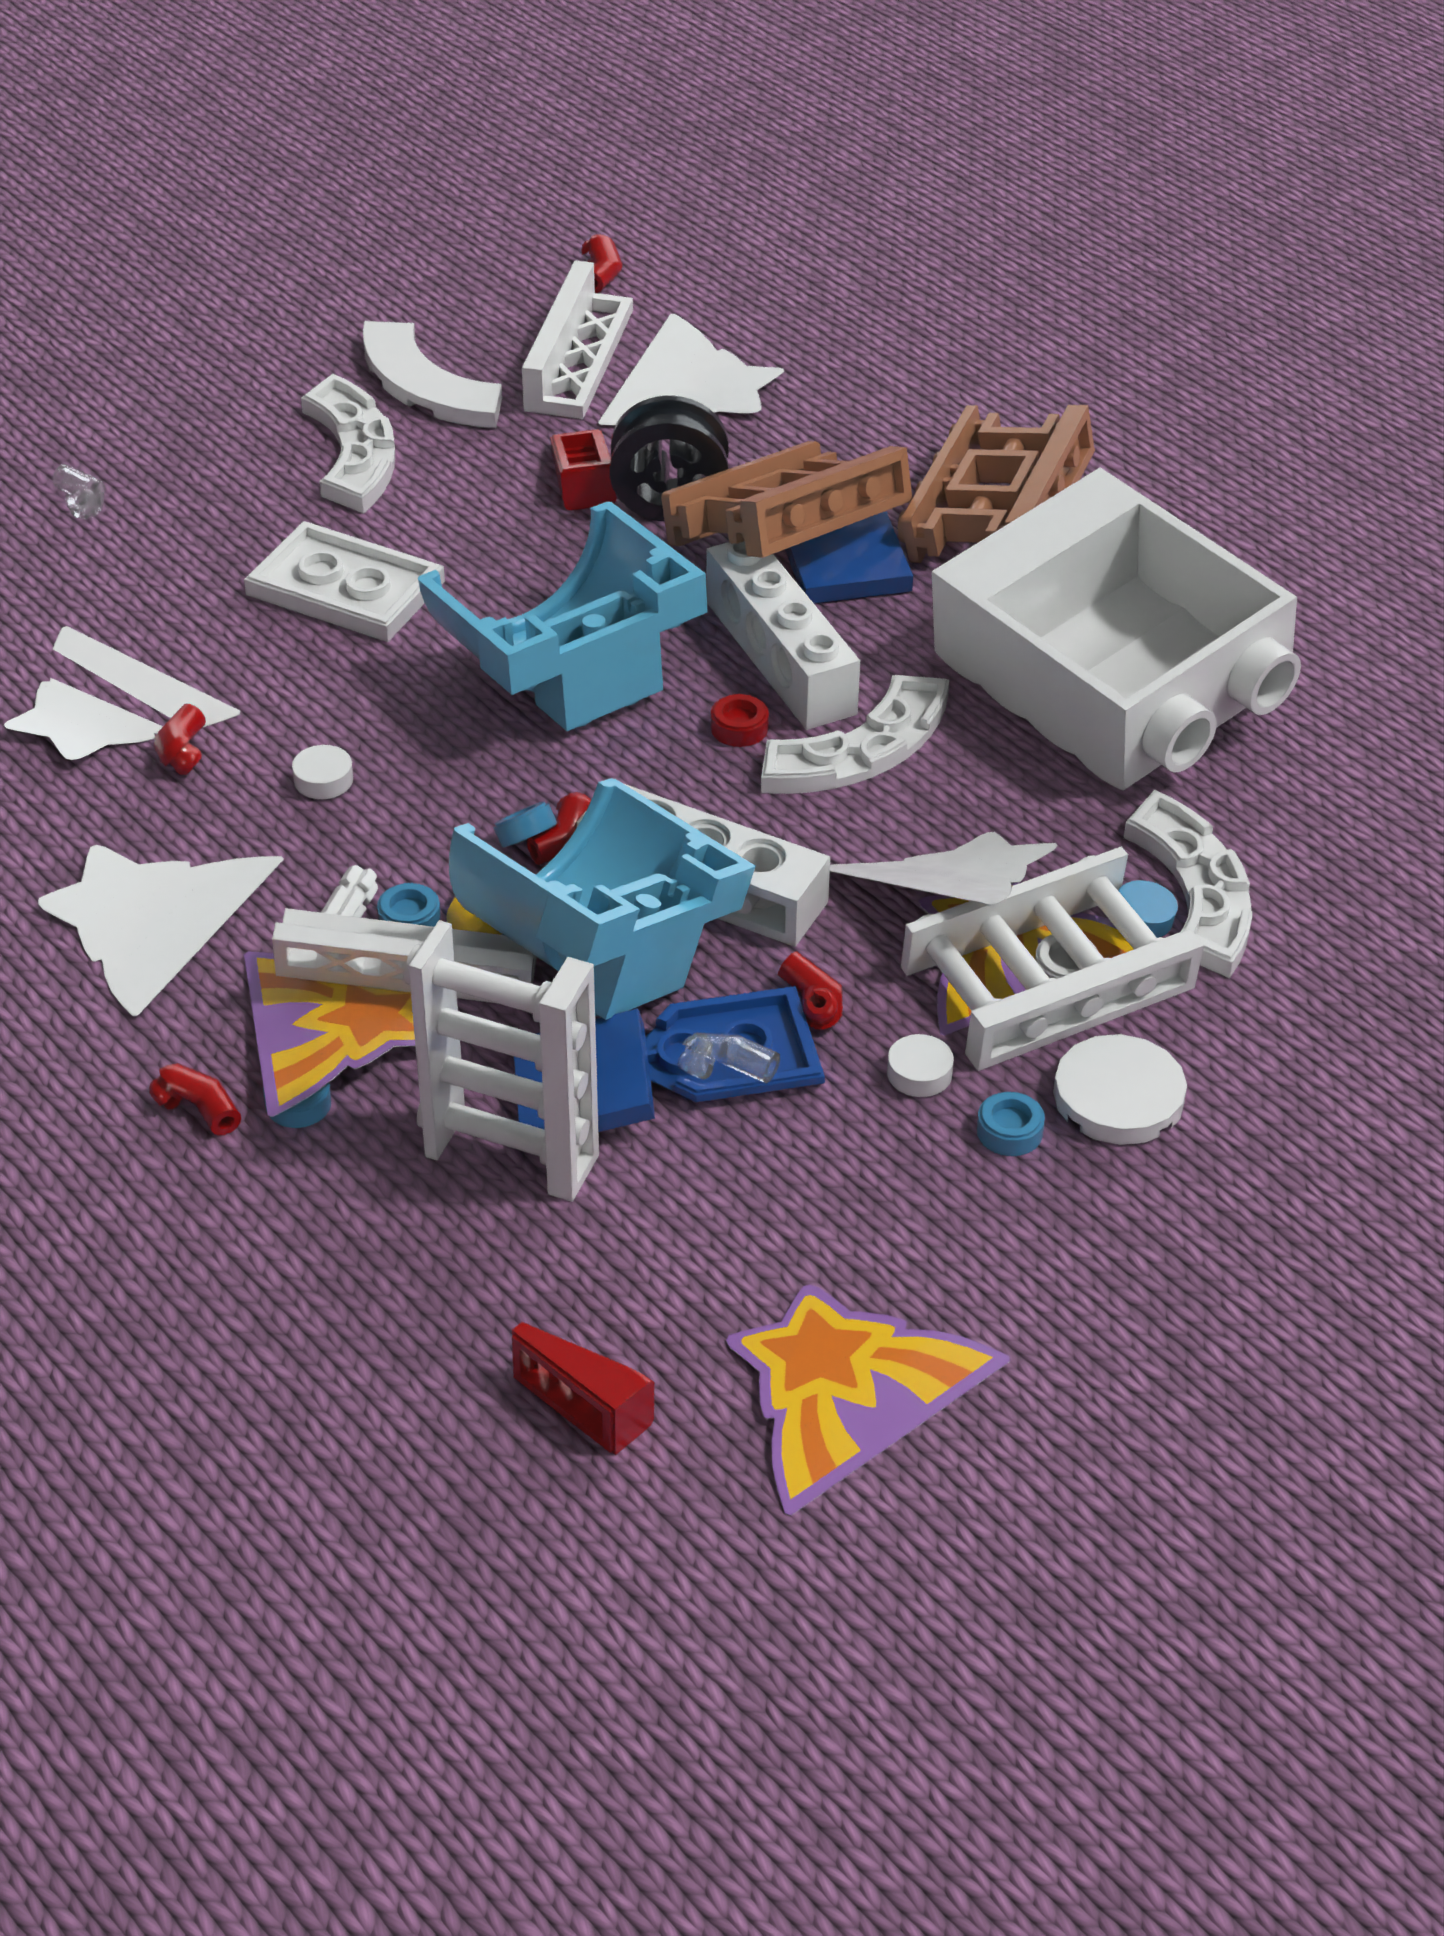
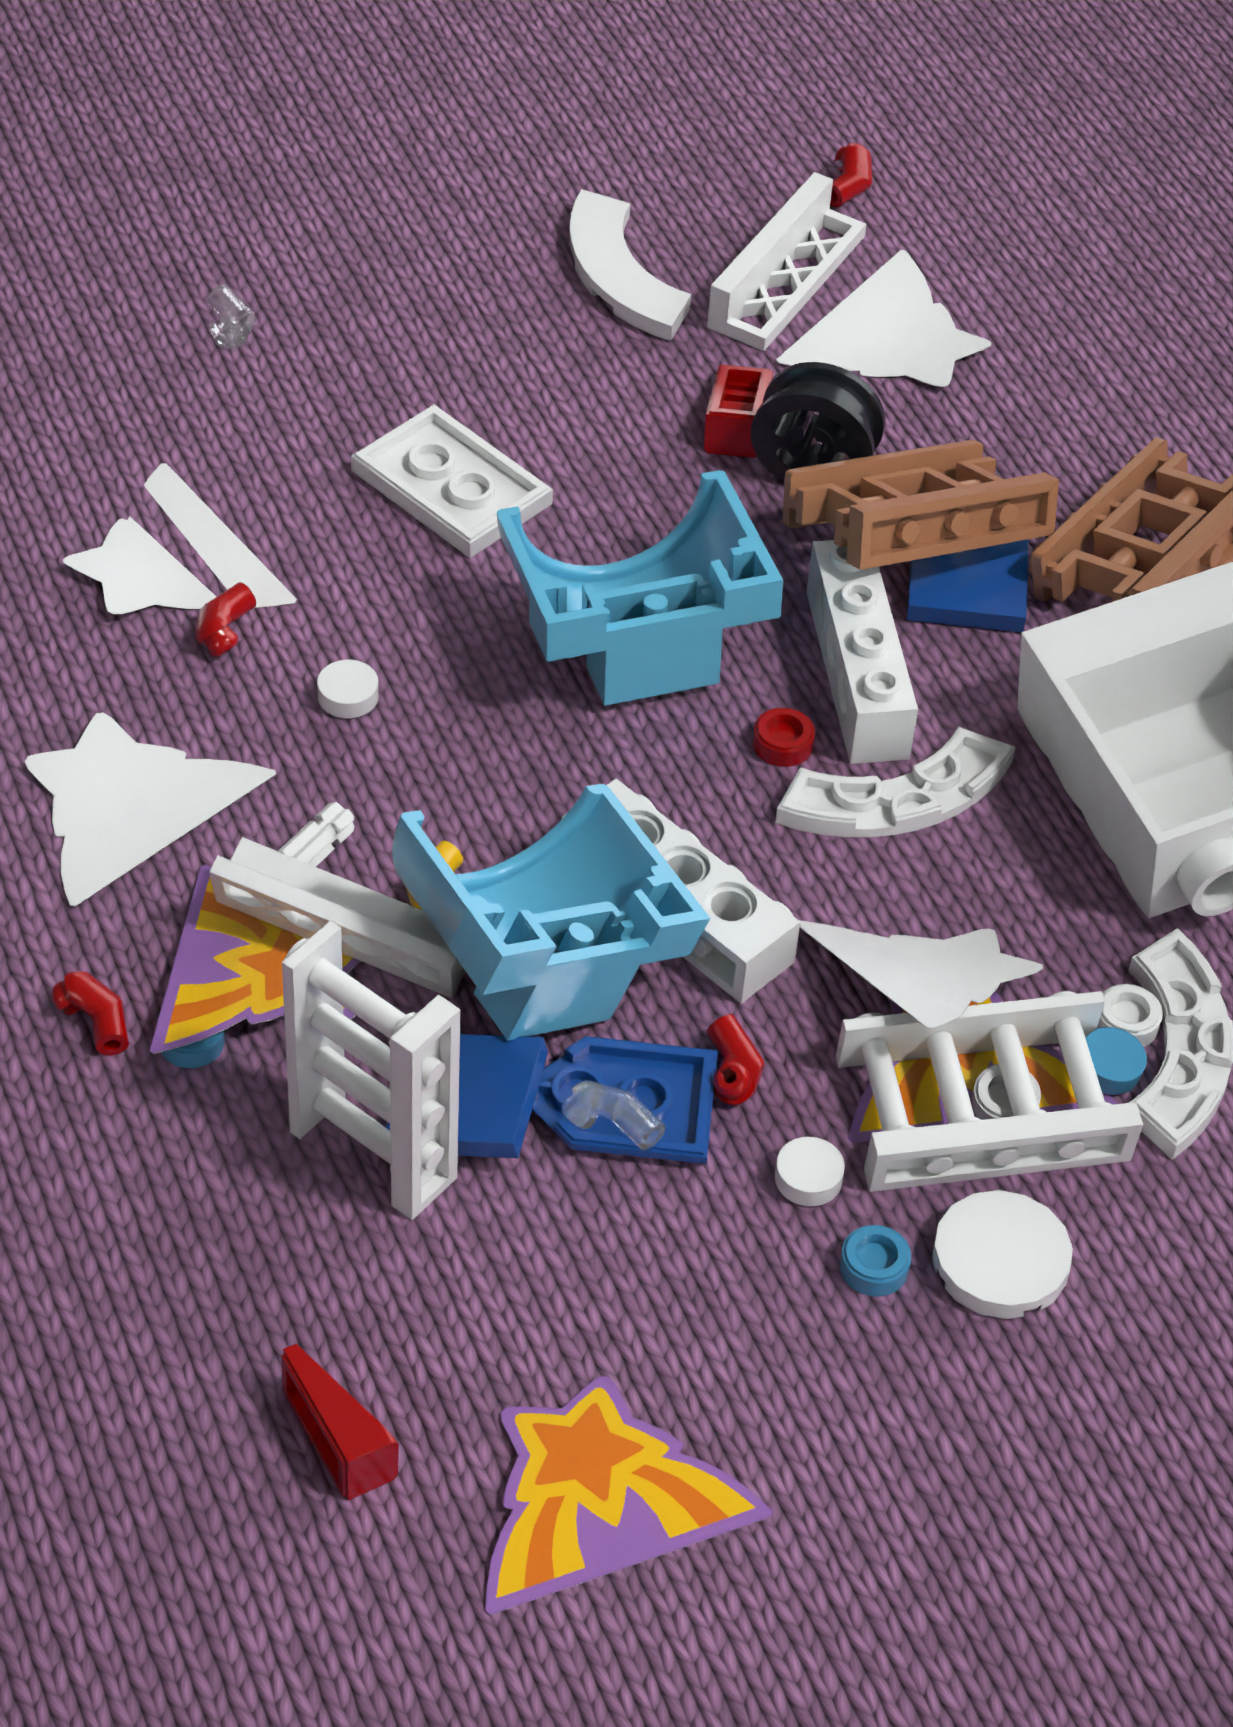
camera: 15 degrees right, 5 degrees up
(364, 438) = (532, 328): white tile -> none
(409, 904) = (370, 863): dark azure tile -> none
(524, 823) = (518, 800): dark azure tile -> none
(548, 843) = (536, 825): red arm -> none
(1148, 864) = (1133, 1011): none -> white tile

